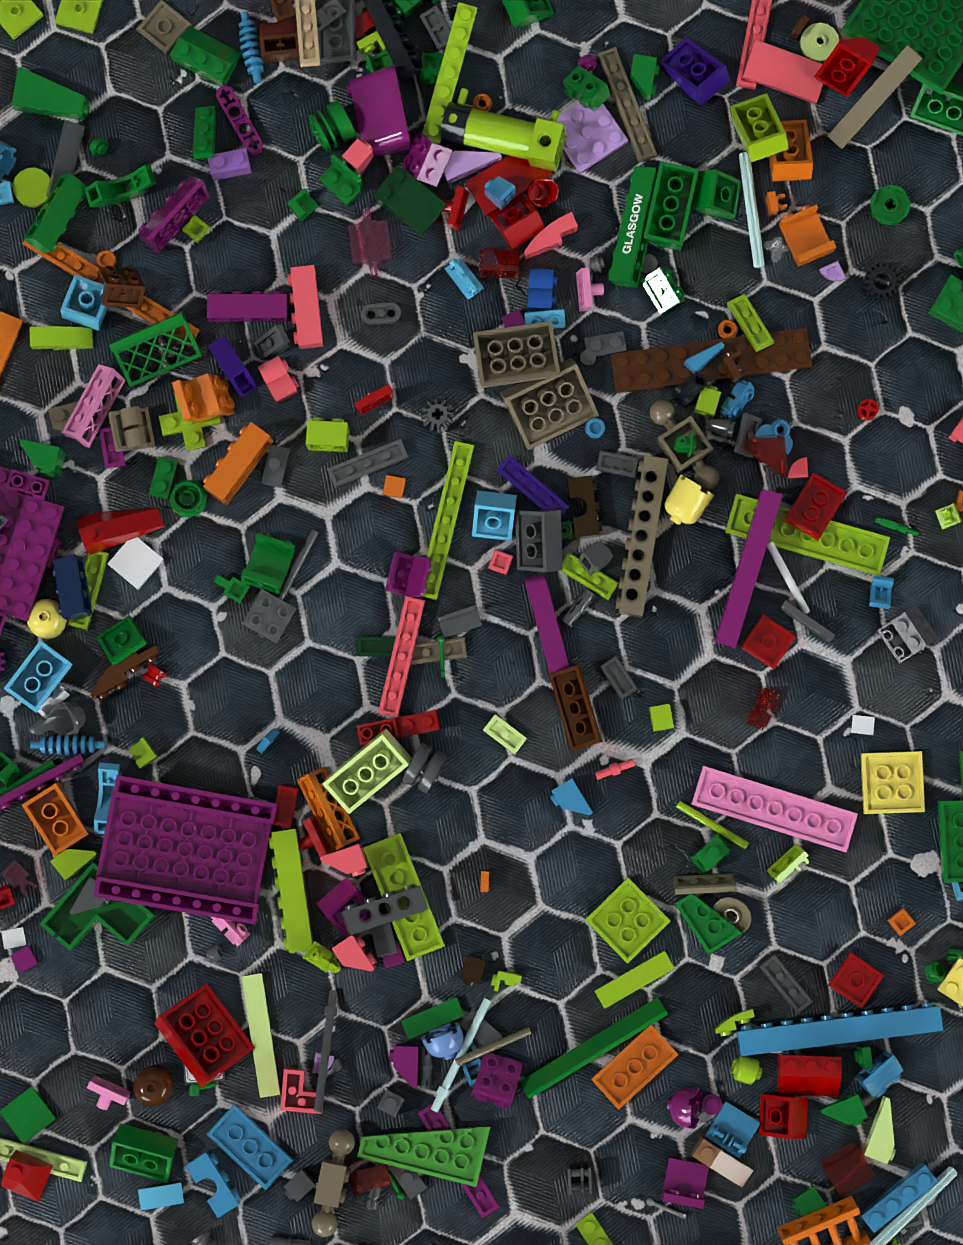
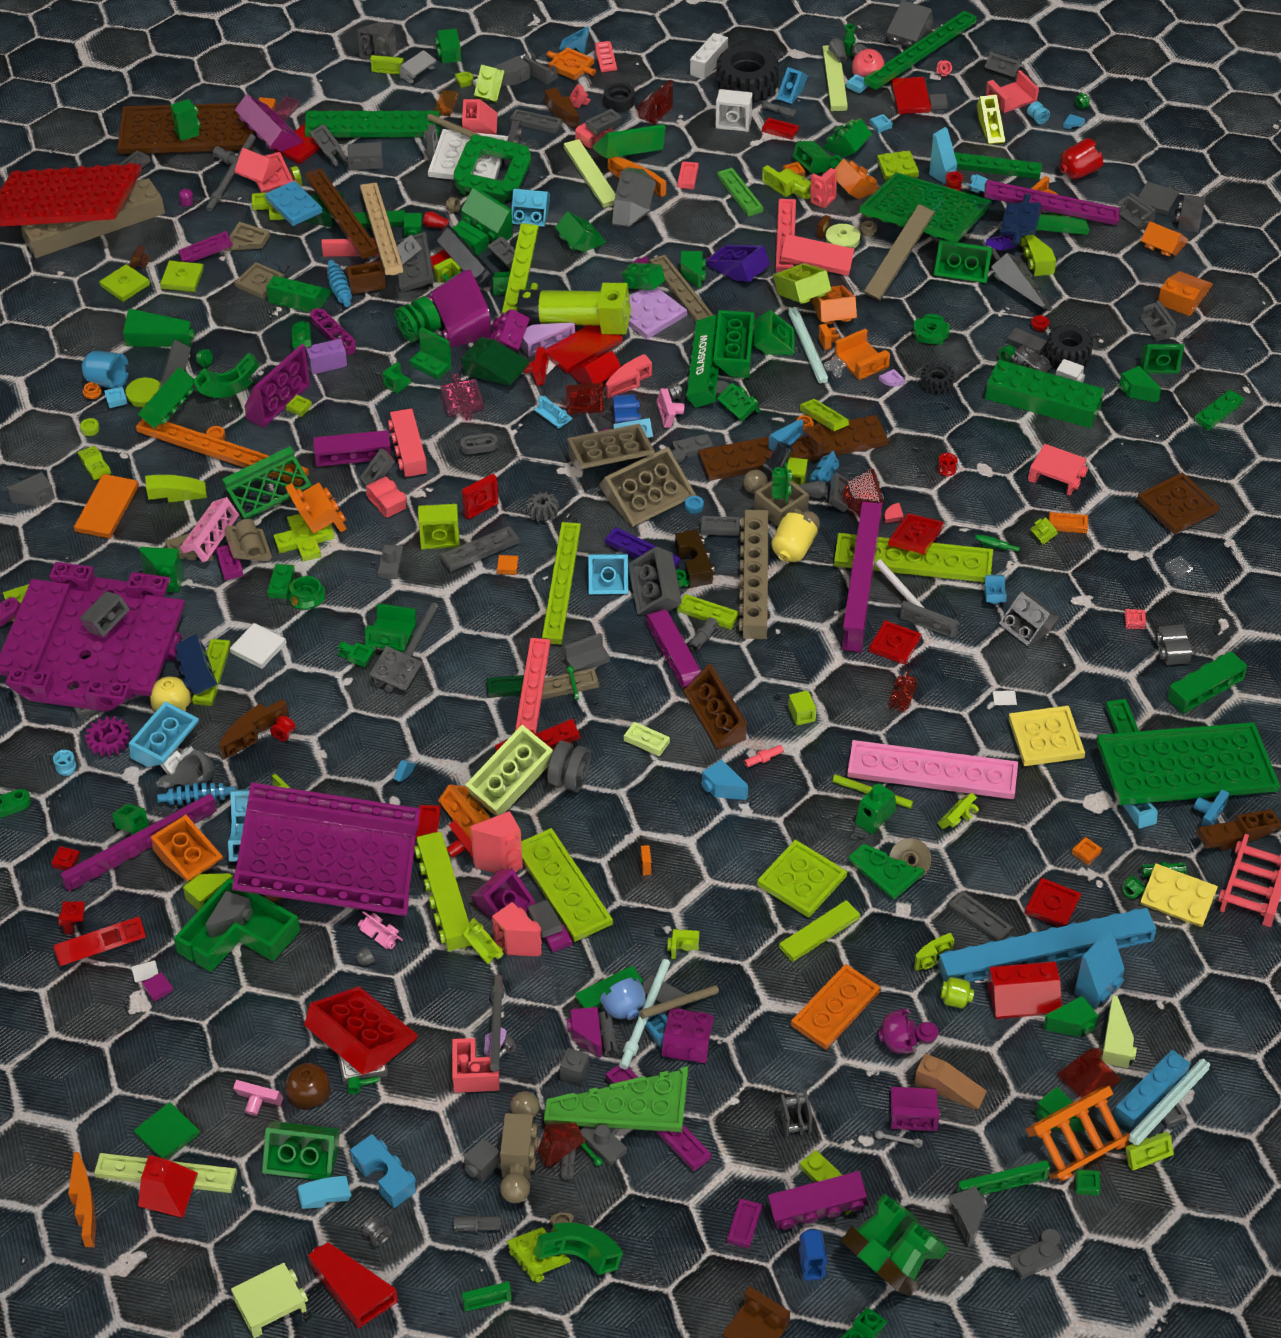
camera: 10 degrees left, 35 degrees down
(16, 876) = (148, 911): clear pink plate -> none
(84, 303) = (198, 459): medium azure slope -> none
(112, 528) = (228, 620): red wedge -> none
(121, 287) = (233, 441): reddish brown bracket -> none
(121, 640) = (247, 701): green tile -> none
(232, 366) = (344, 490): dark purple slope -> none
(238, 463) = (353, 554): orange brick -> none
(250, 1146) = (422, 1134): dark azure tile -> none
(261, 1035) = (424, 1026): yellowish green tile -> none
(358, 156) = (447, 329): coral slope -> none
(408, 575) = (530, 623): magenta bracket -> none
(416, 904) = (544, 884): dark grey brick -> none
(472, 970) = (646, 937): dark brown brick -> none
(499, 192) = (578, 346): dark azure slope -> none
(500, 562) = (620, 610): coral tile -> none
(542, 192) = (618, 343): red hair -> none
(593, 1048) = (787, 994): green tile -> none
(595, 558) = (712, 591): dark grey brick -> none
(618, 677) = (753, 685): dark grey tile -> none
(704, 883) = (876, 836): dark tan tile -> none
(732, 1129) = (957, 1051): dark azure hinge -> none
(783, 1116) = (1007, 1031): red slope -> none
(847, 64) = (869, 232): red slope -> none
(863, 1056) = (1078, 951): green plate -> none

